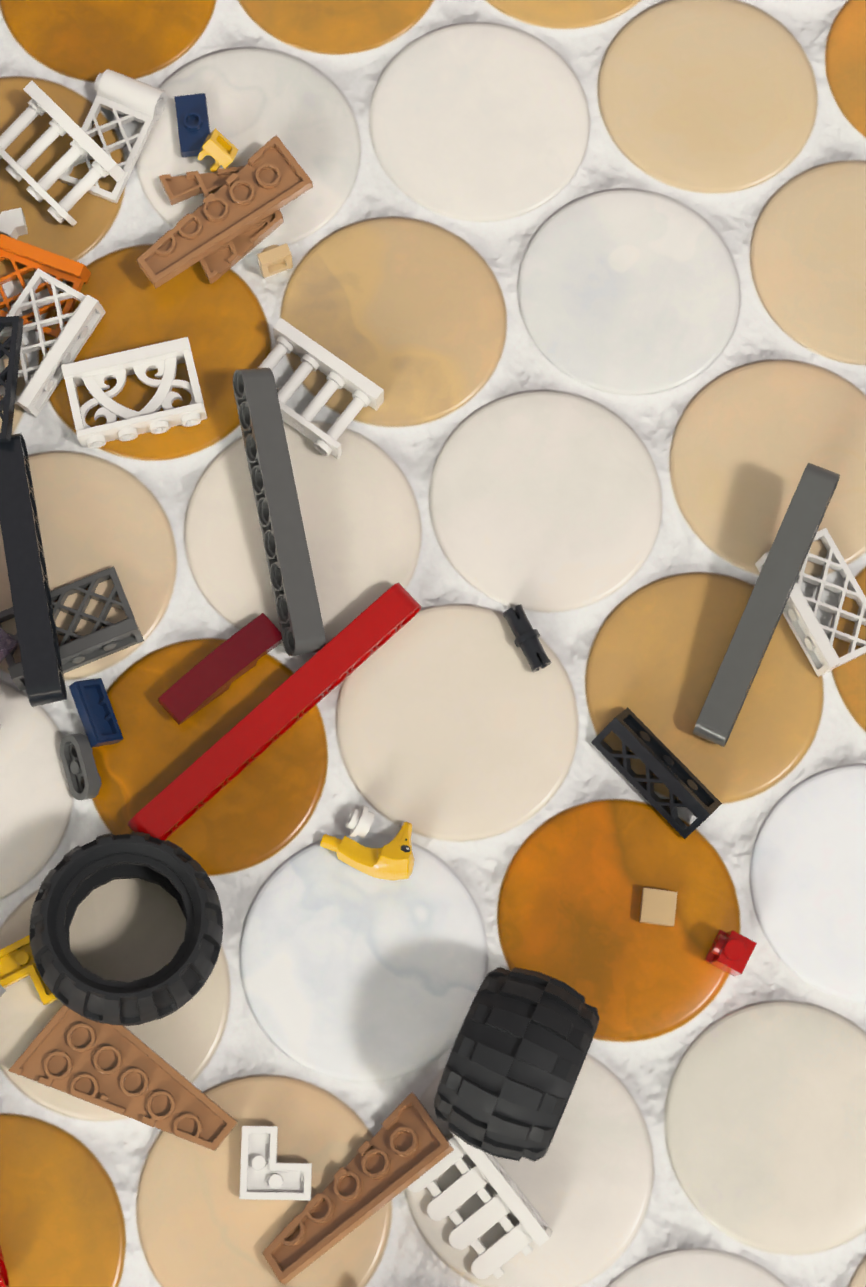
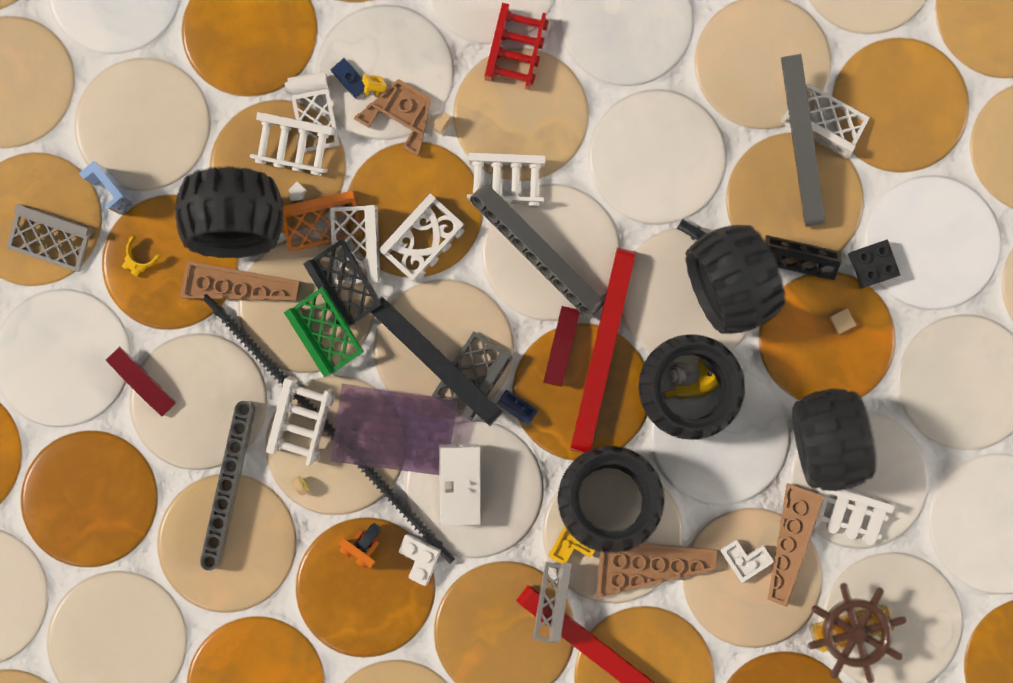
camera: 25 degrees left, 10 degrees up
(80, 766) = (528, 438): dark grey plate -> none
(245, 199) = (408, 99): medium nougat wing -> none
(343, 777) = (731, 386): none -> black tyre
(440, 196) = (503, 34): none -> red fence
(529, 725) = (735, 279): none -> black tyre
(730, 952) = (890, 320): red brick -> none
(760, 853) = (874, 264): none -> black brick

